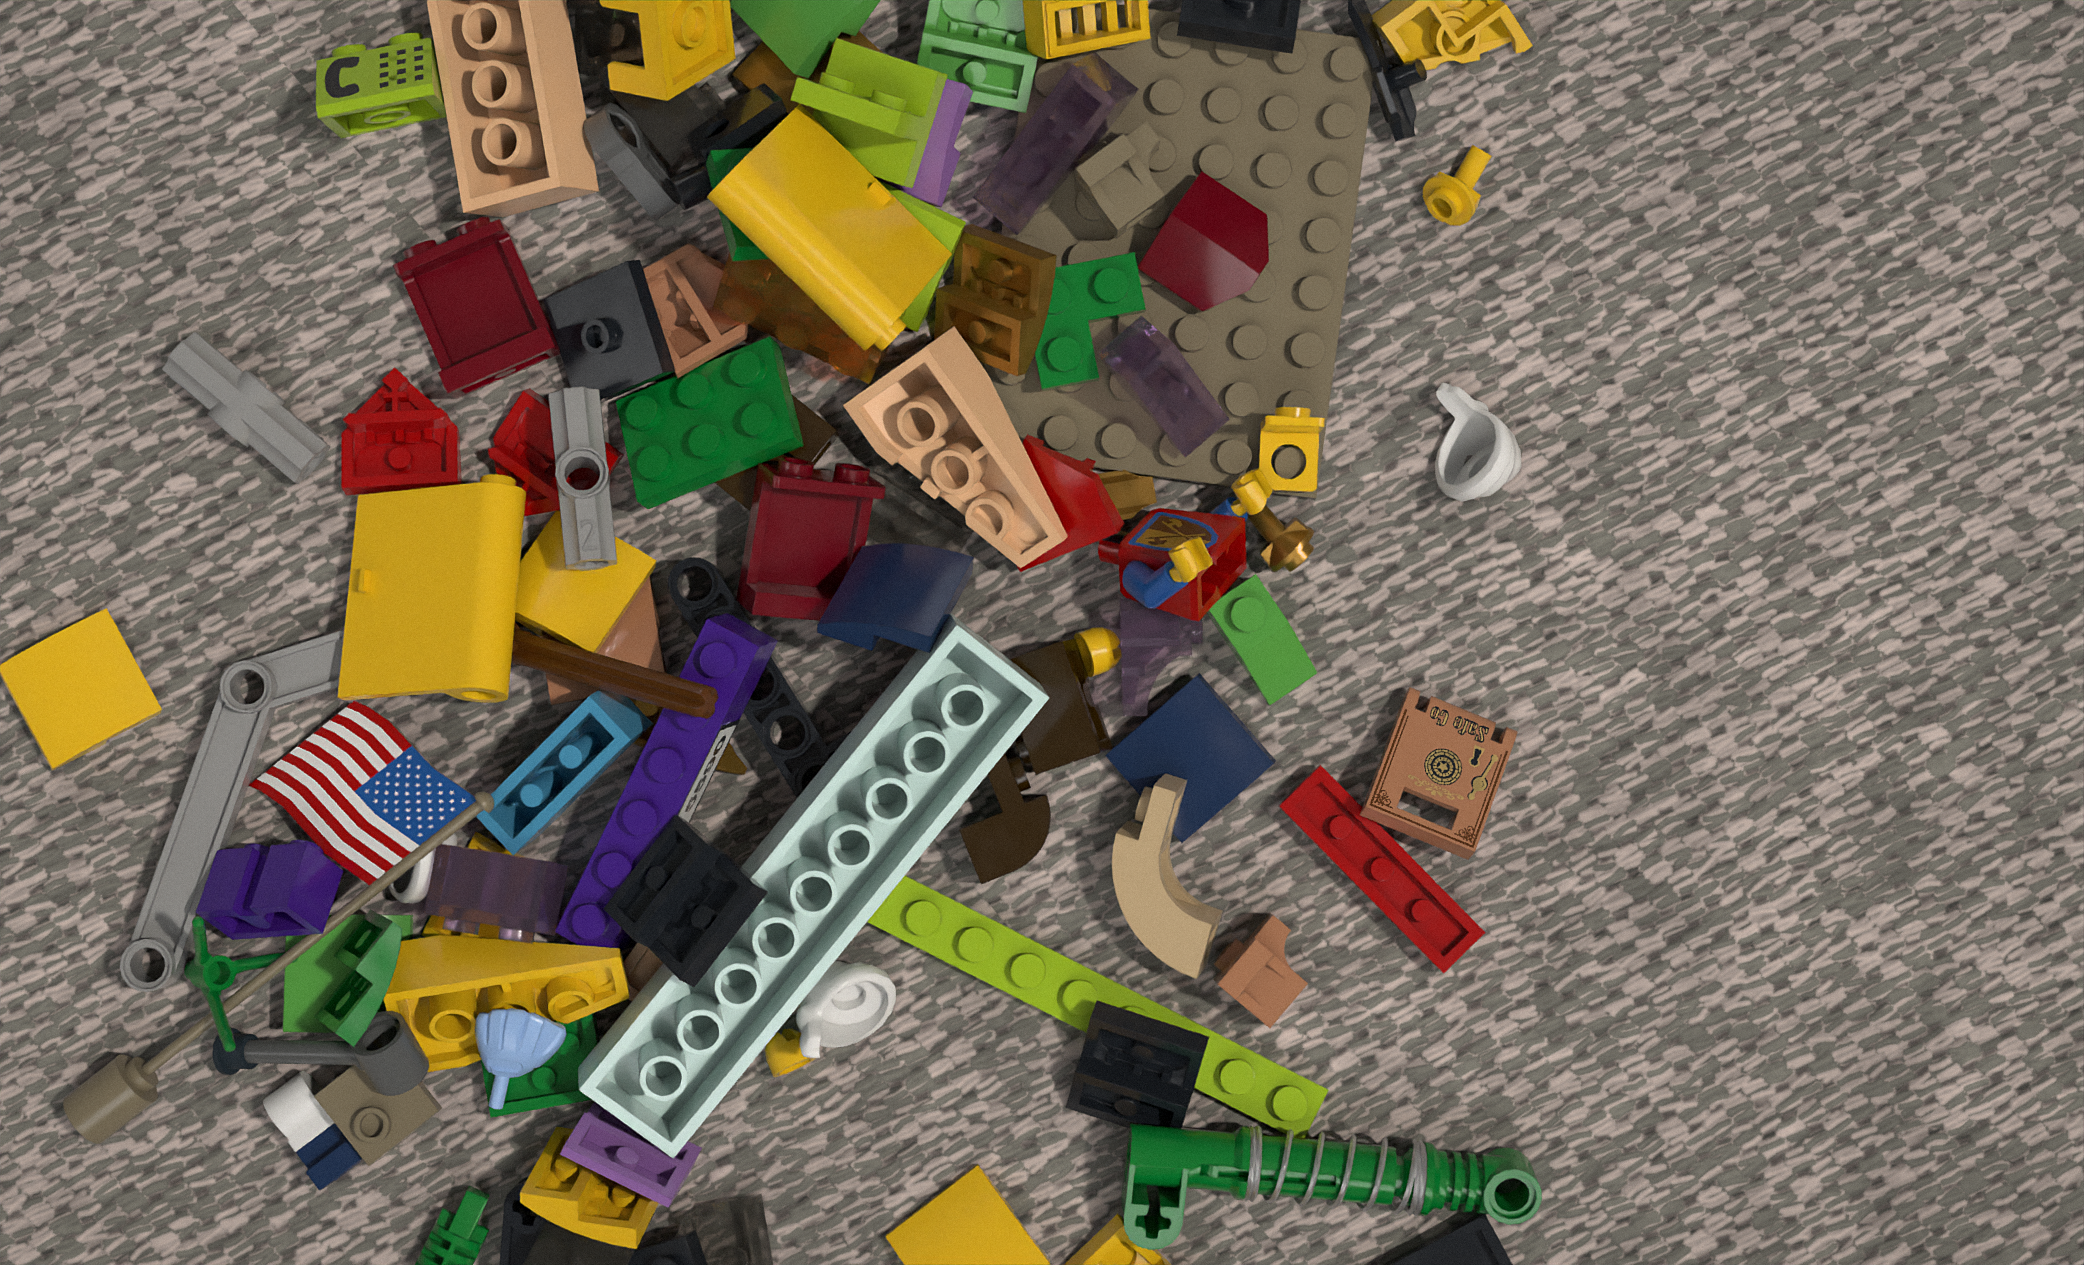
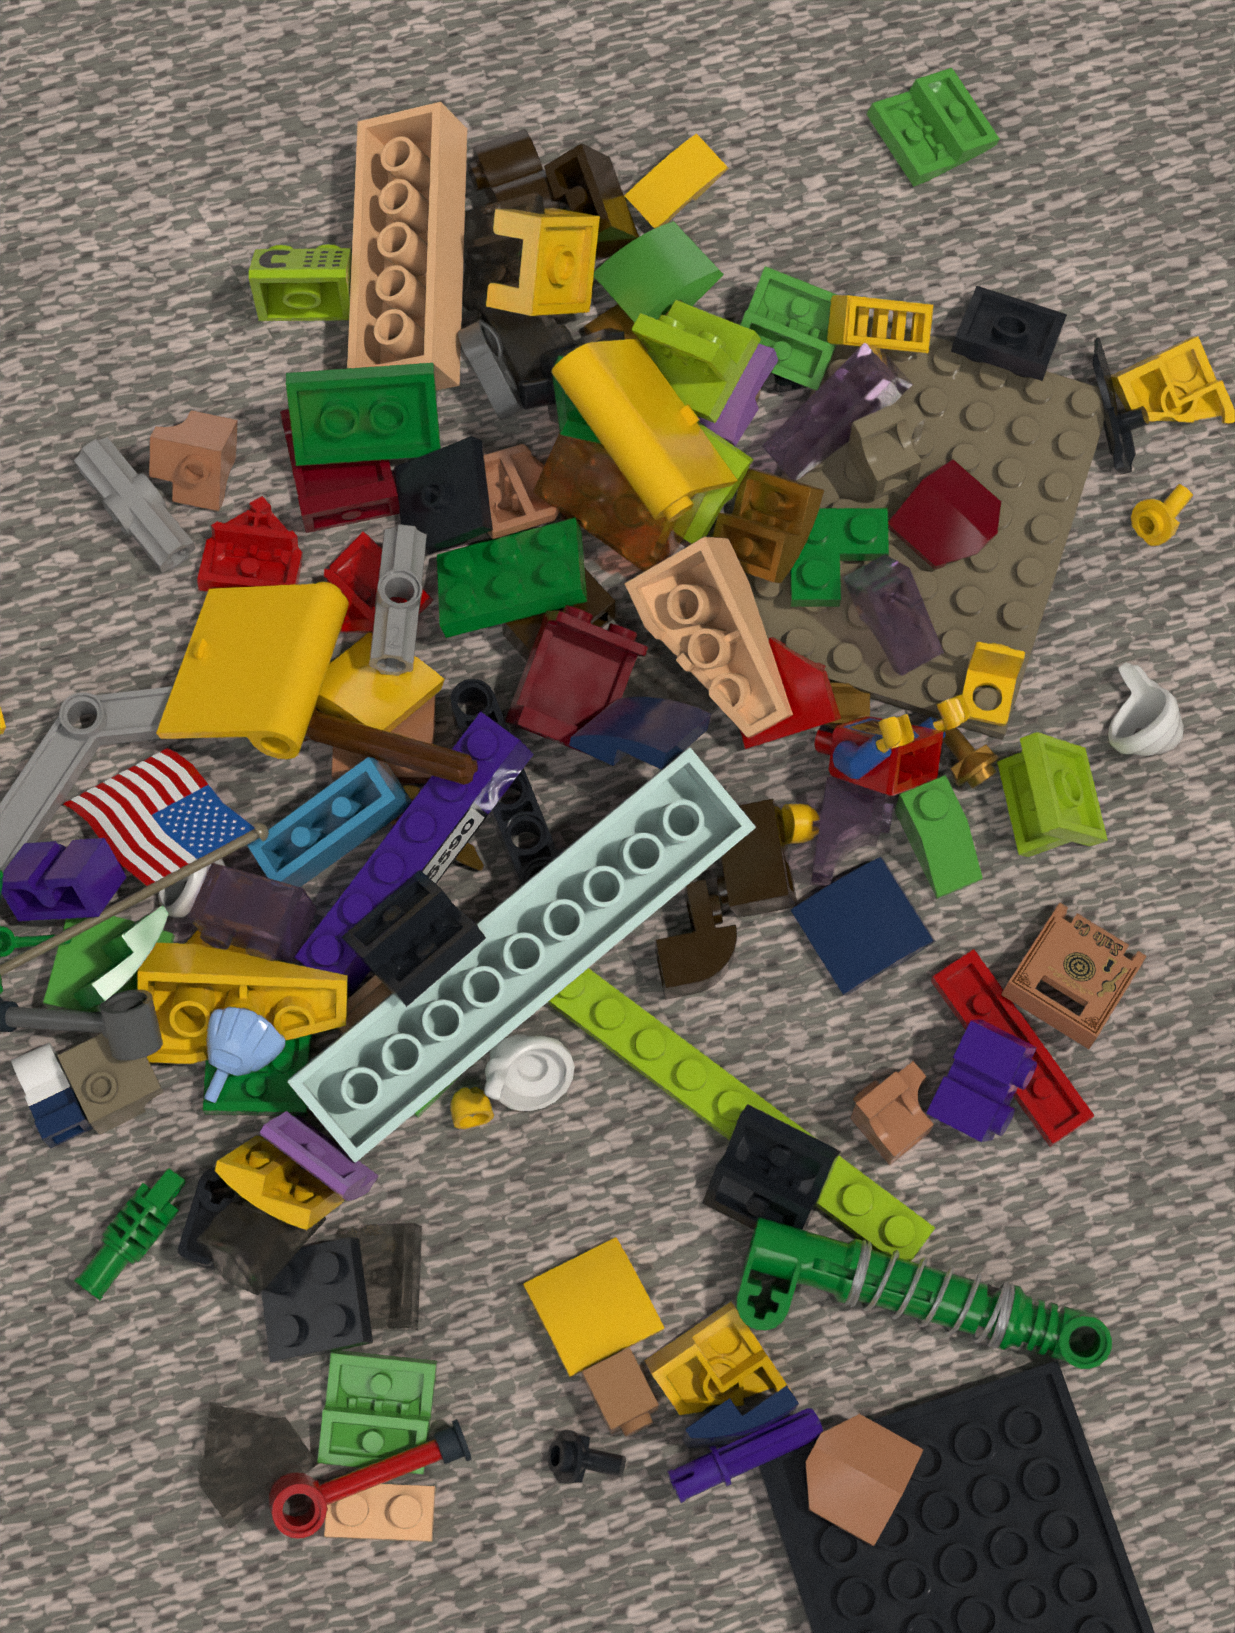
camera: 10 degrees right, 15 degrees down
(306, 338) = (195, 458): none -> nougat brick
(492, 256) = (363, 413): none -> green plate
(1148, 892) = (809, 1022): tan arch -> none
(1354, 922) = (983, 1081): none -> dark purple brick
(1382, 565) = (1051, 795): none -> lime bracket

